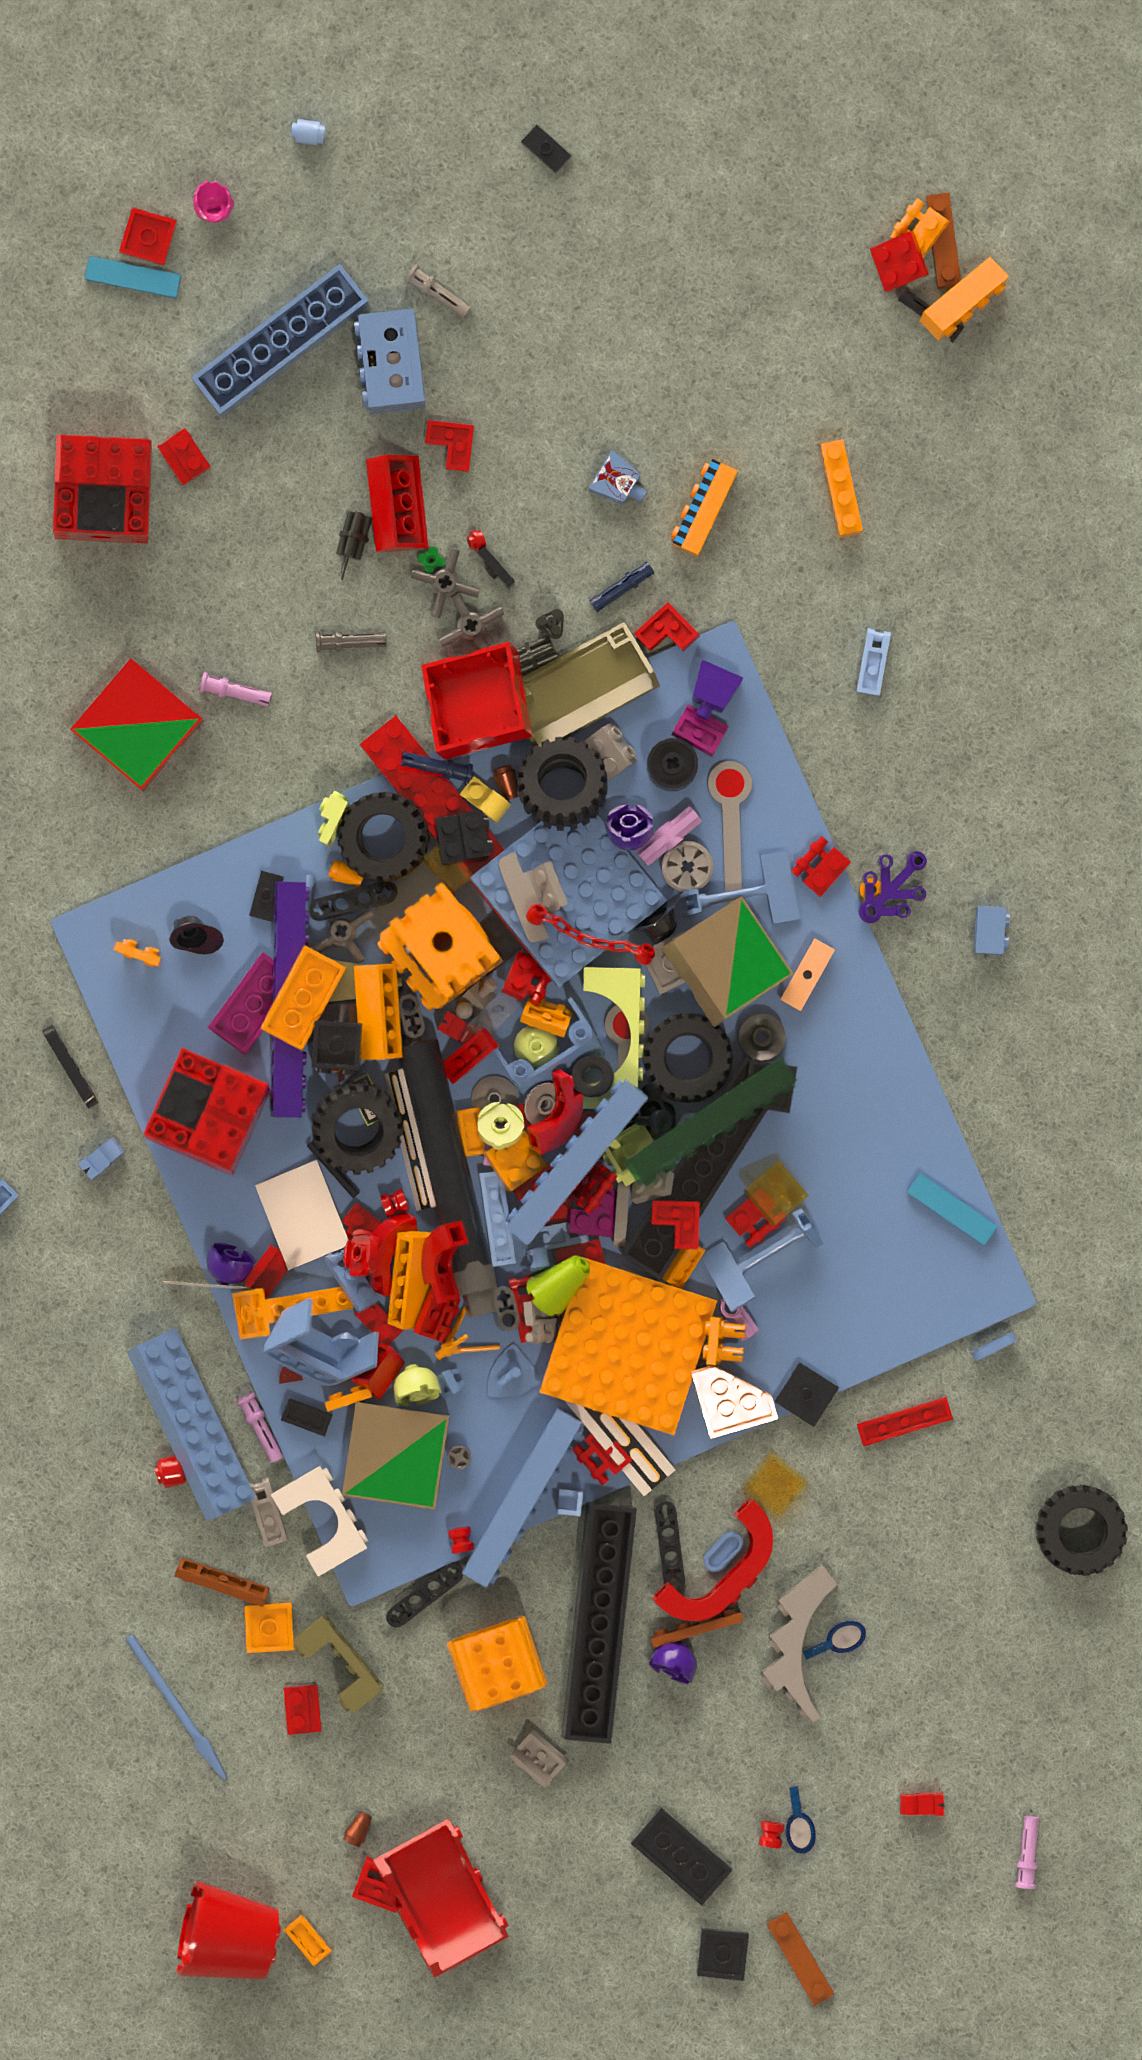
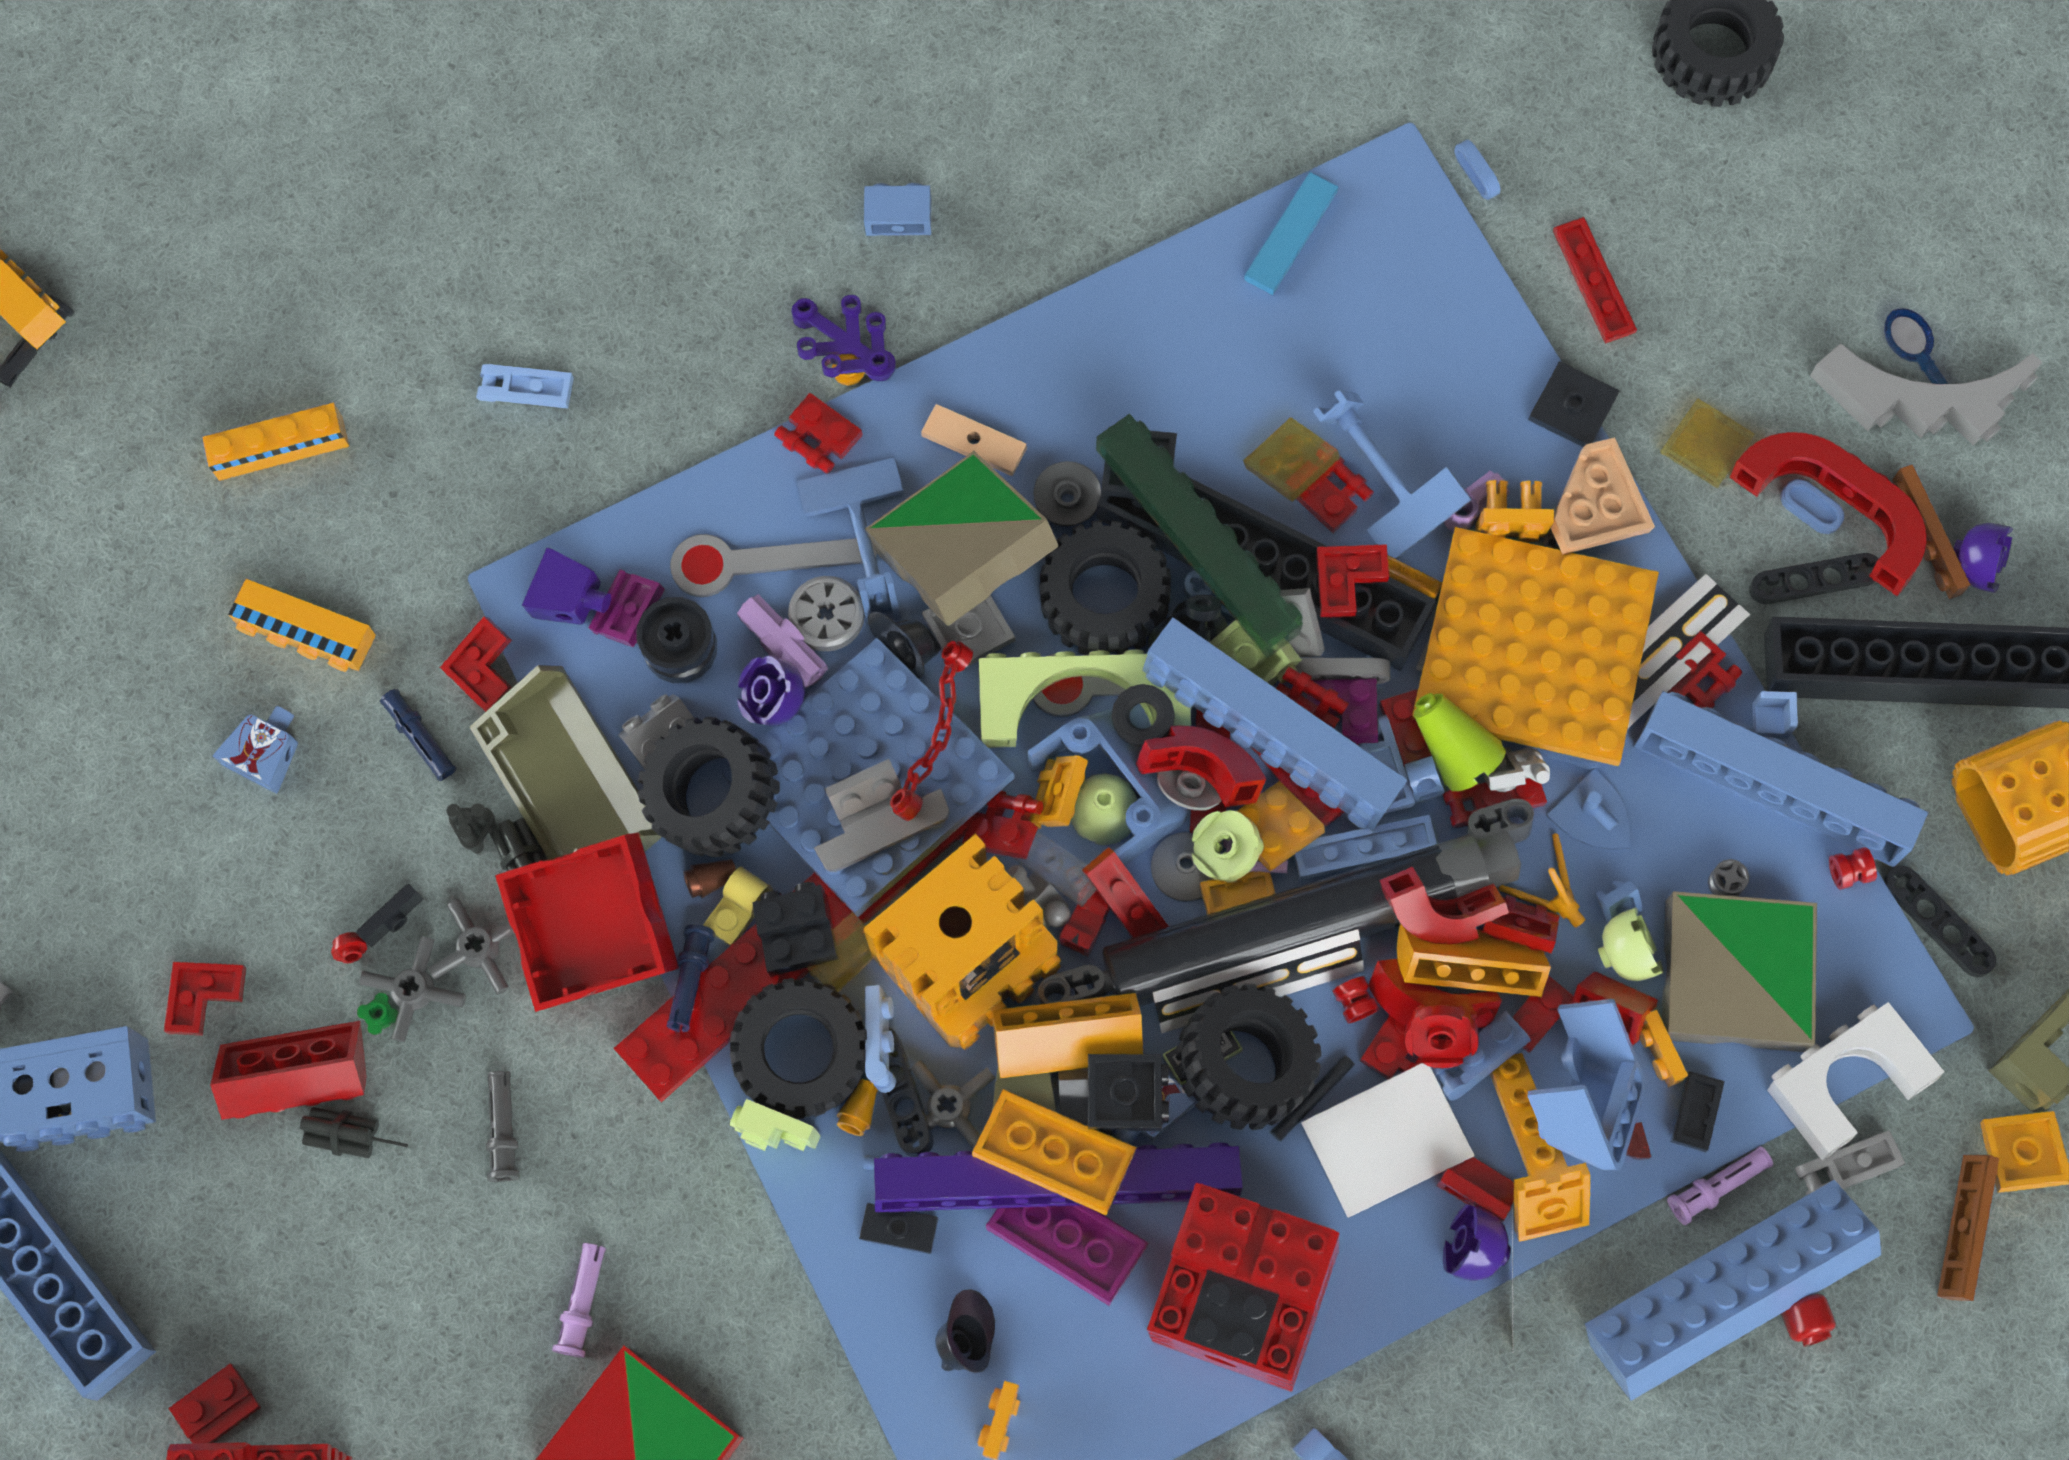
camera: 90 degrees left, 15 degrees down
(385, 889) = (879, 1038): none -> light blue plate

